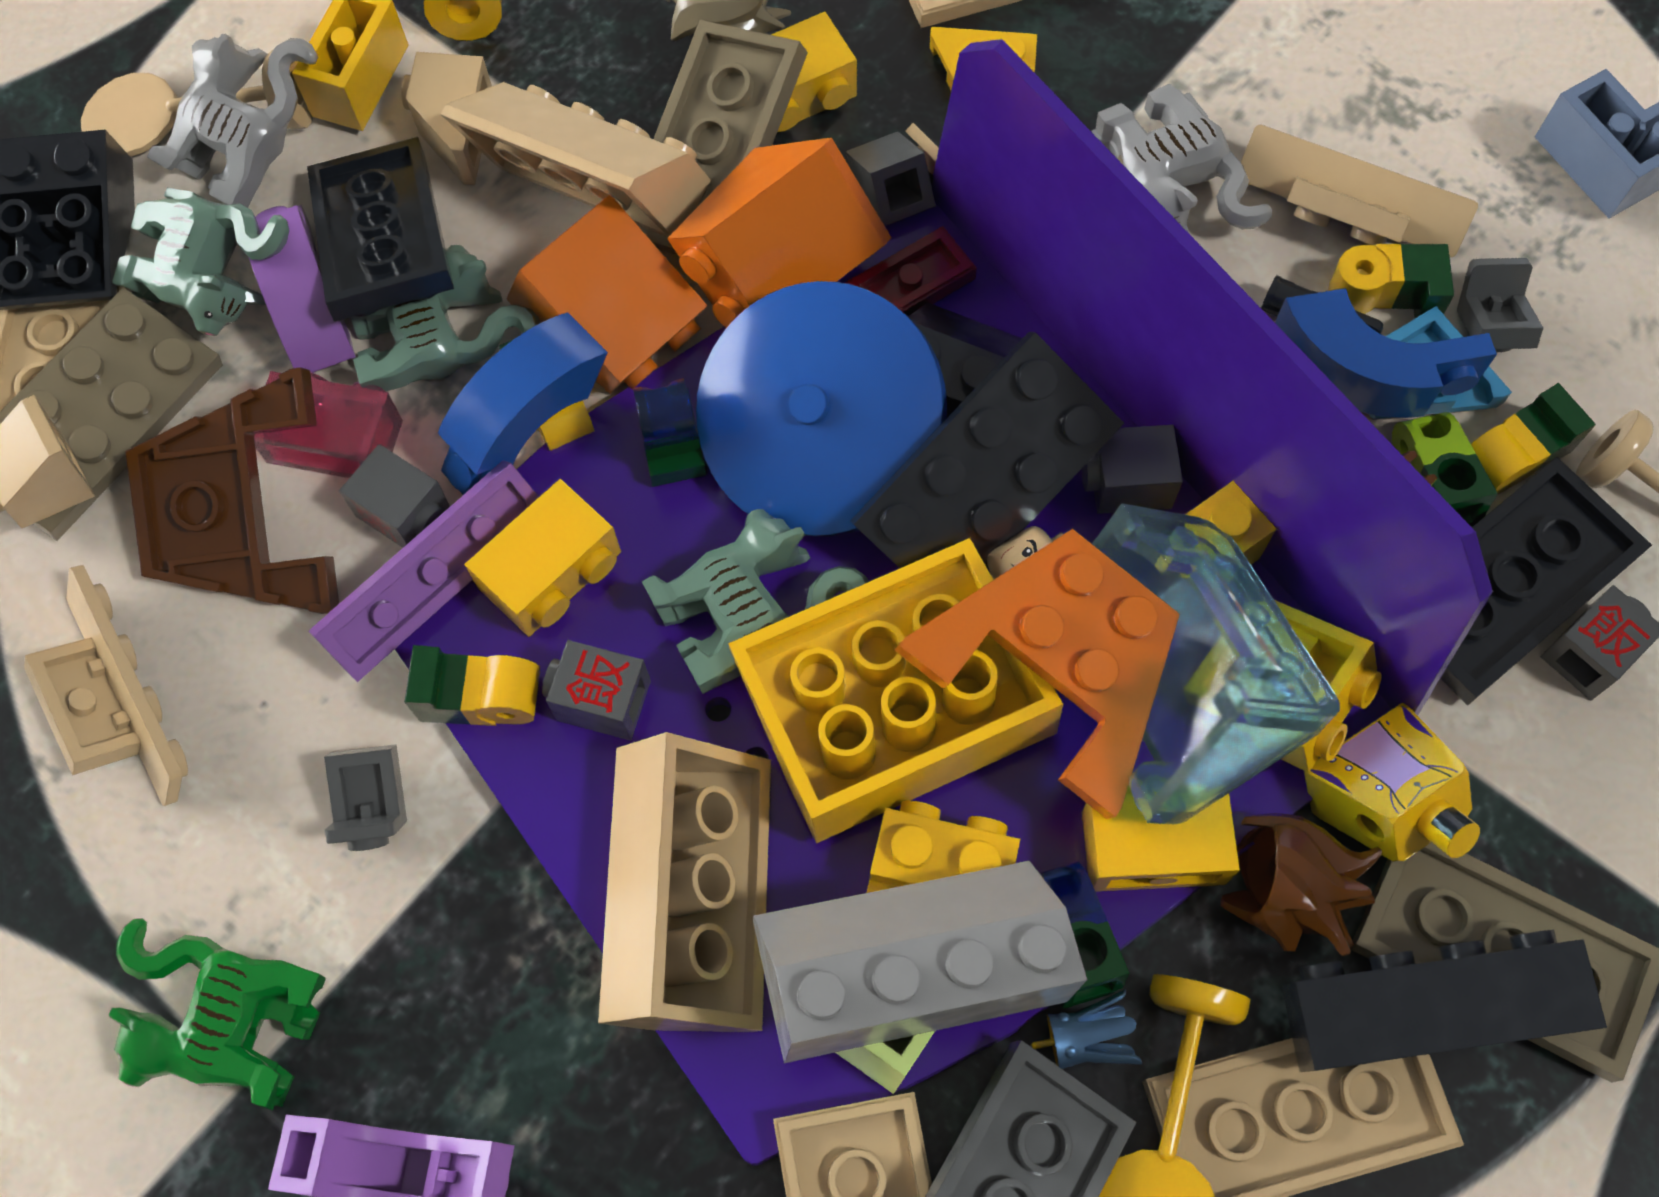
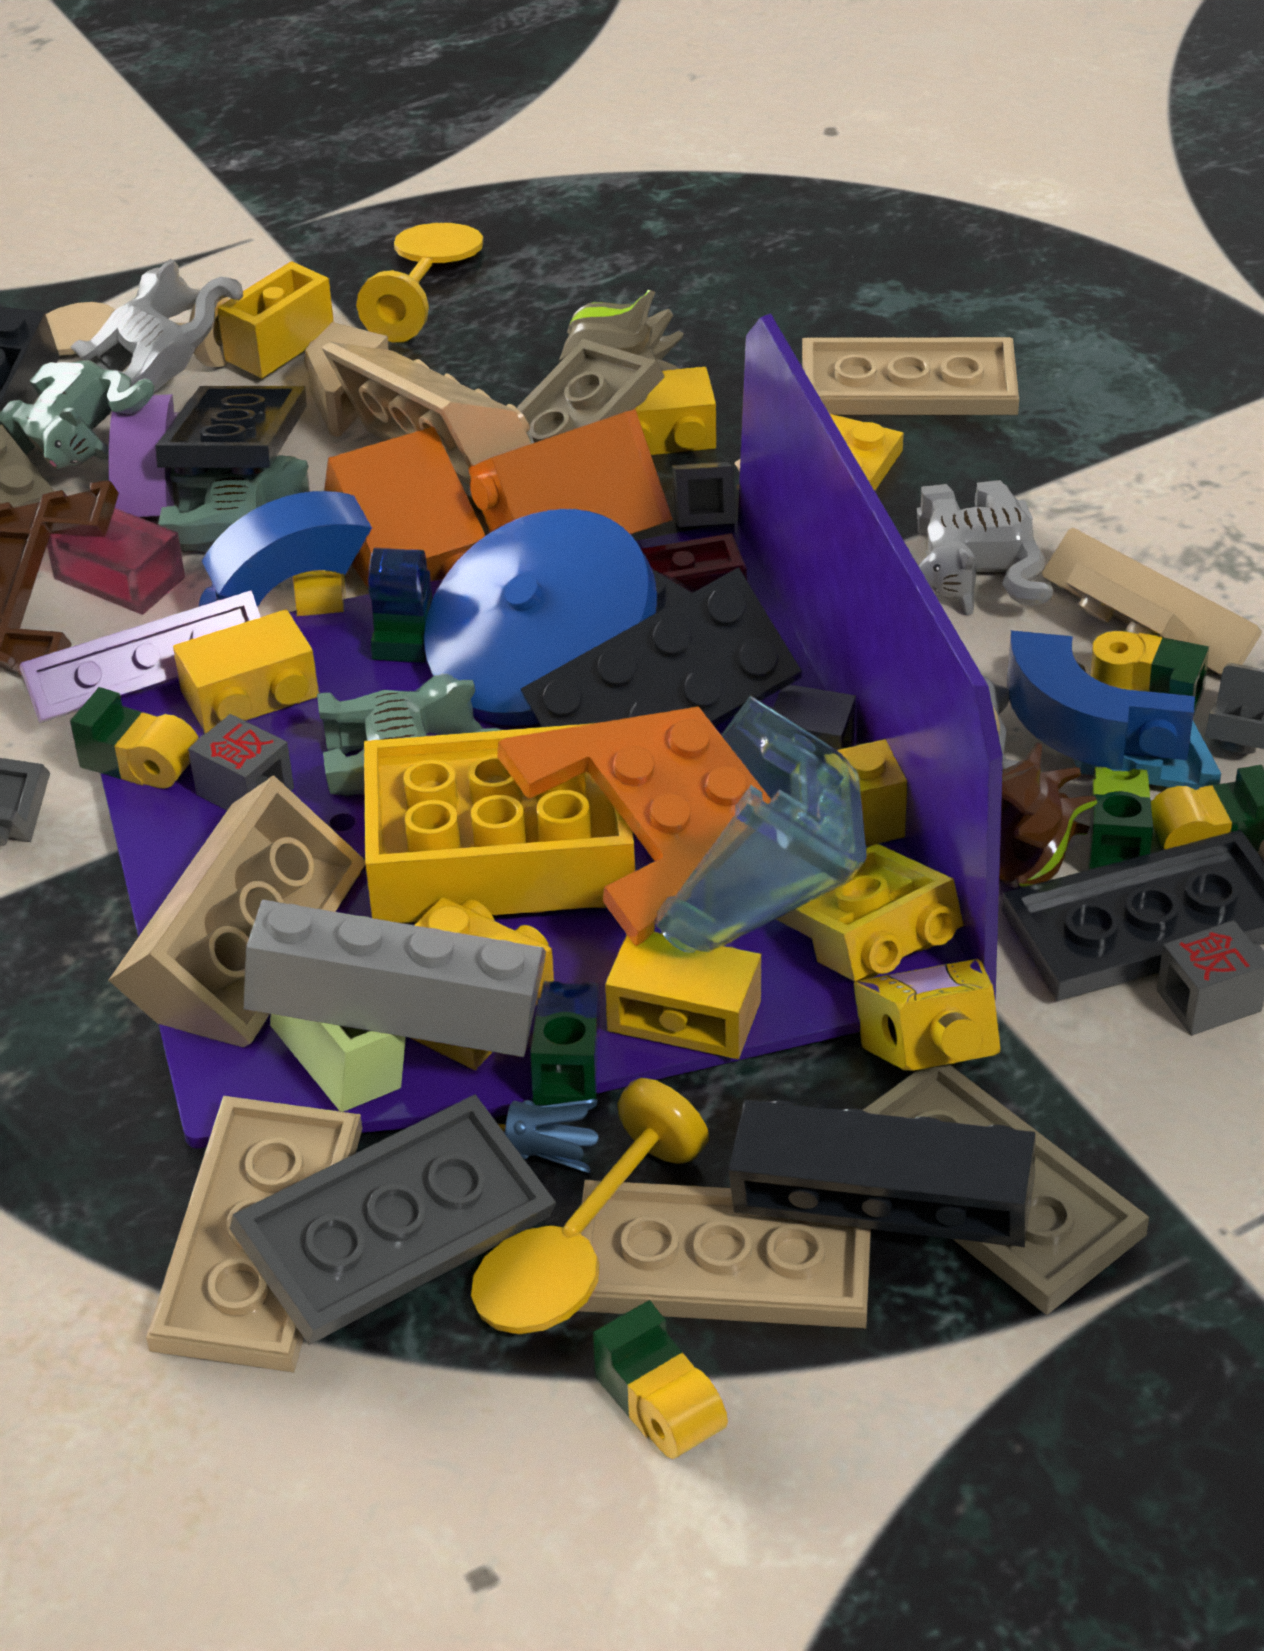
camera: 20 degrees right, 25 degrees down
(393, 496) = (139, 599): dark grey brick -> none
(1298, 880) = (805, 1054): reddish brown hair -> none

